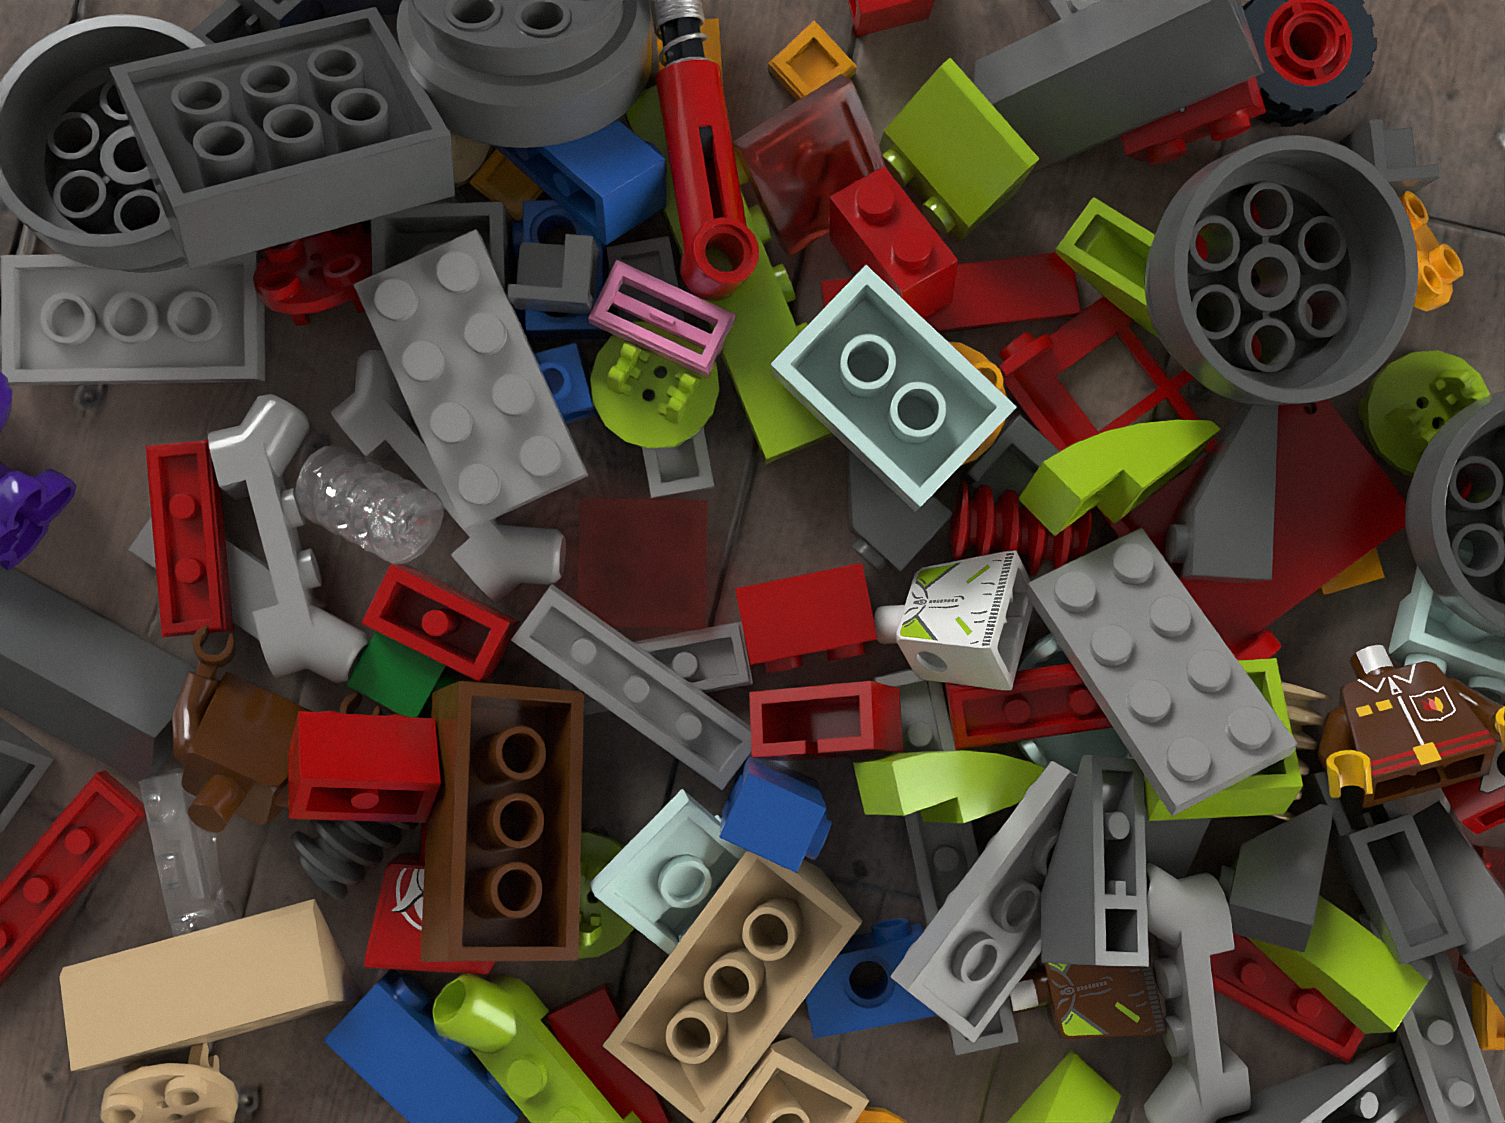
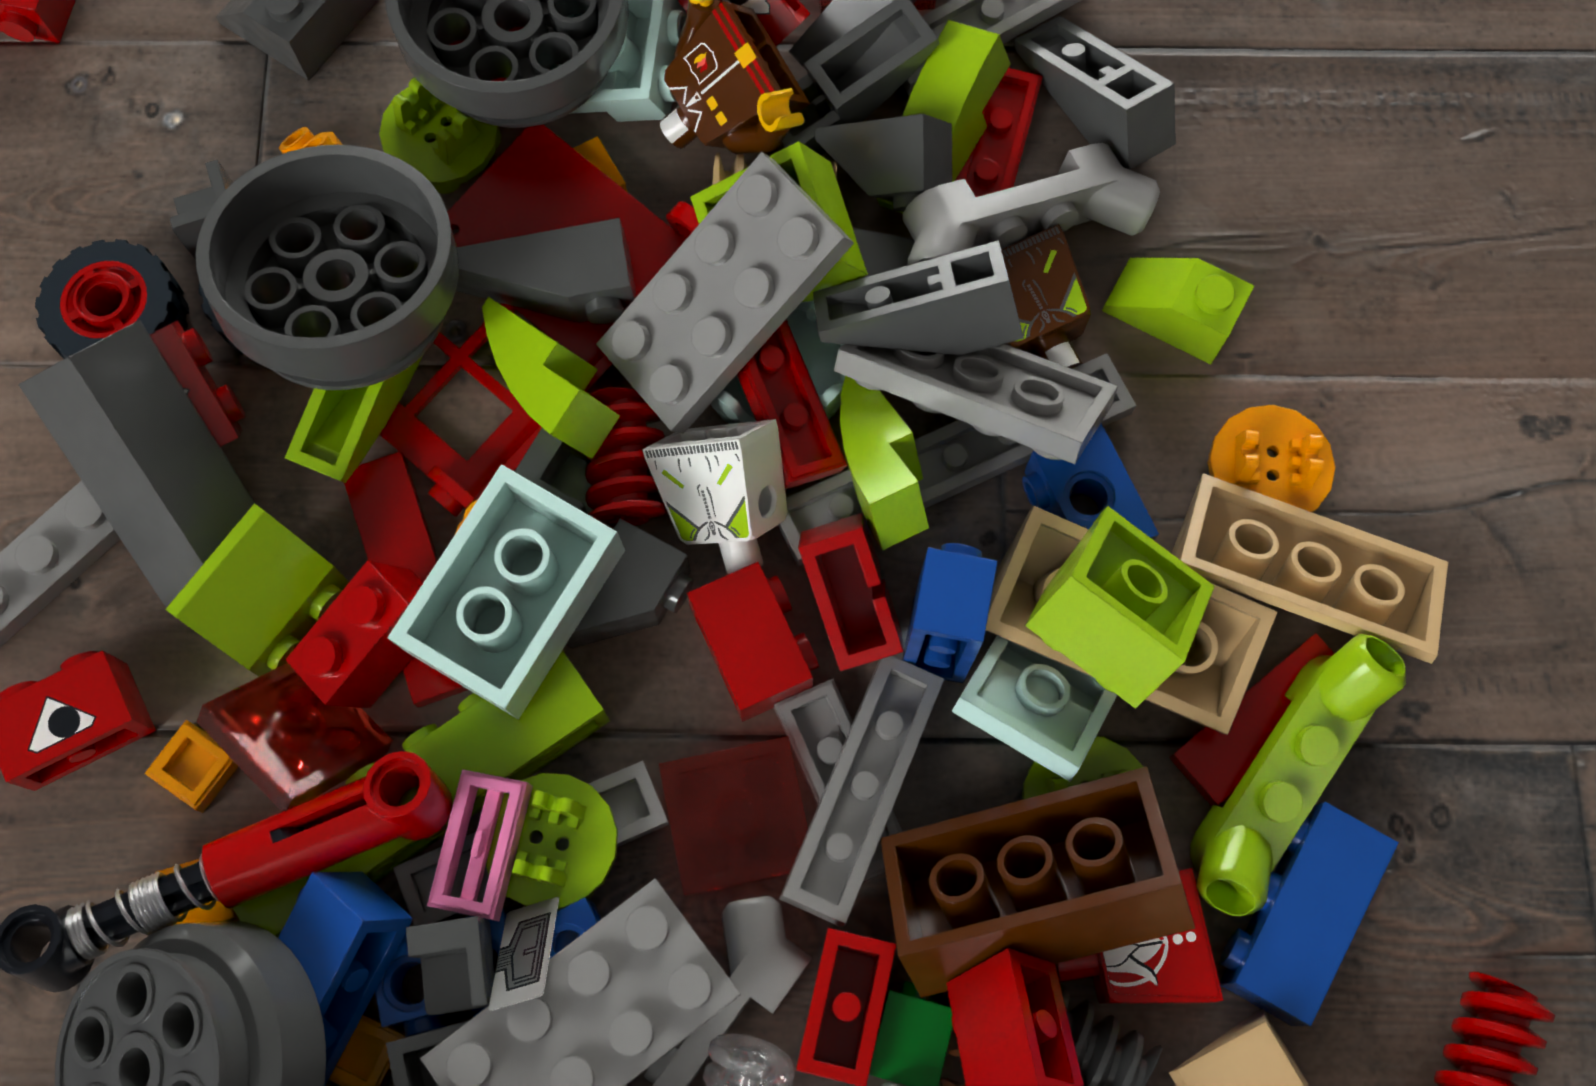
camera: 105 degrees left, 15 degrees down
(548, 340) = (524, 954): none -> sticker
(735, 982) = (1122, 608): none -> lime slope

